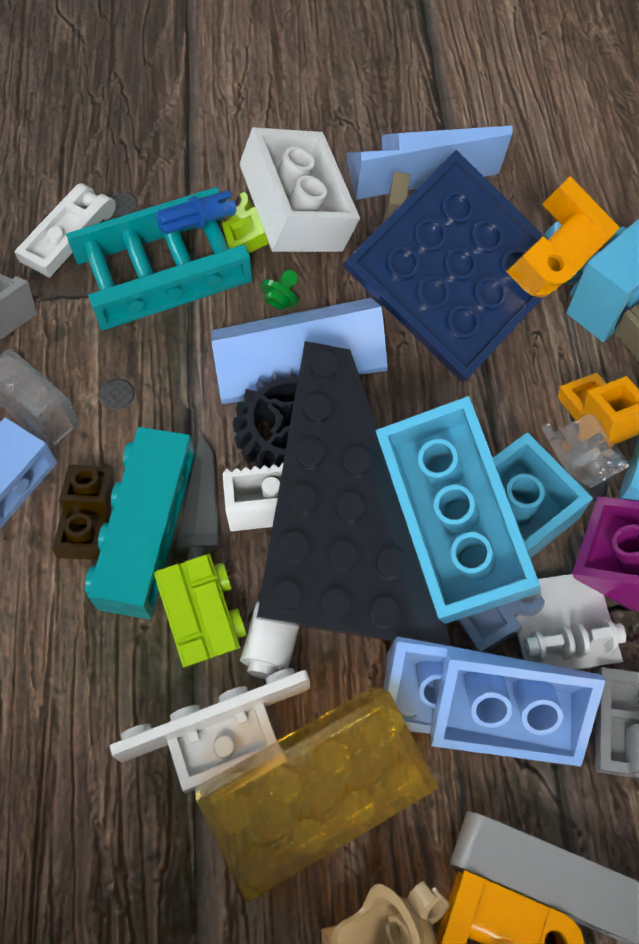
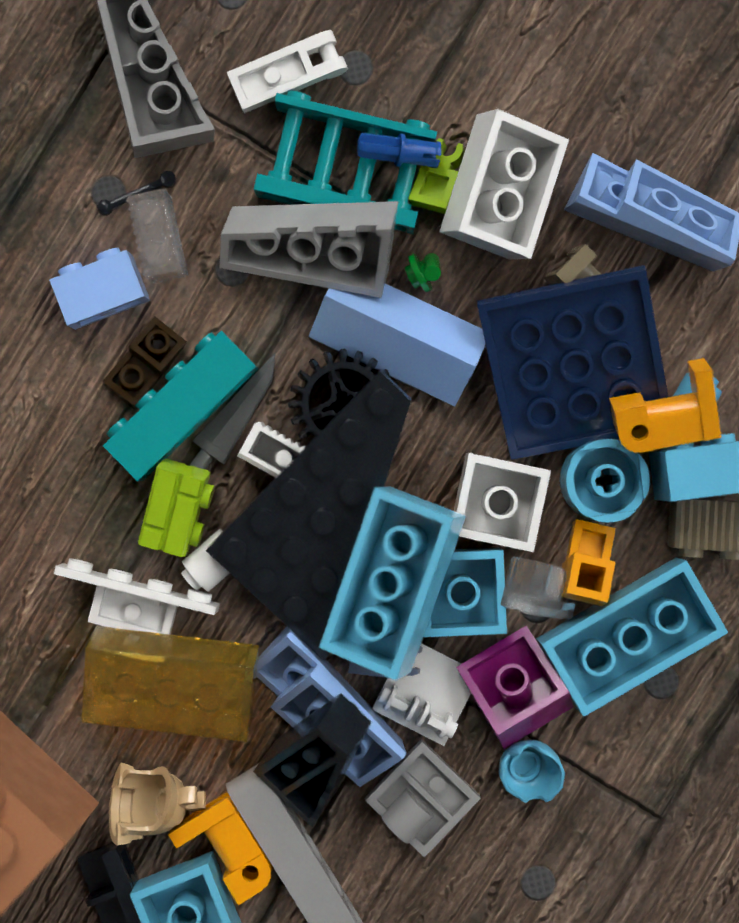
camera: 40 degrees right, 25 degrees up
(177, 312) = (313, 243): none -> light grey wedge
(500, 395) = (501, 501): none -> white brick
(519, 747) = (314, 756): none -> black wedge
(555, 339) = (621, 497): none -> medium azure brick

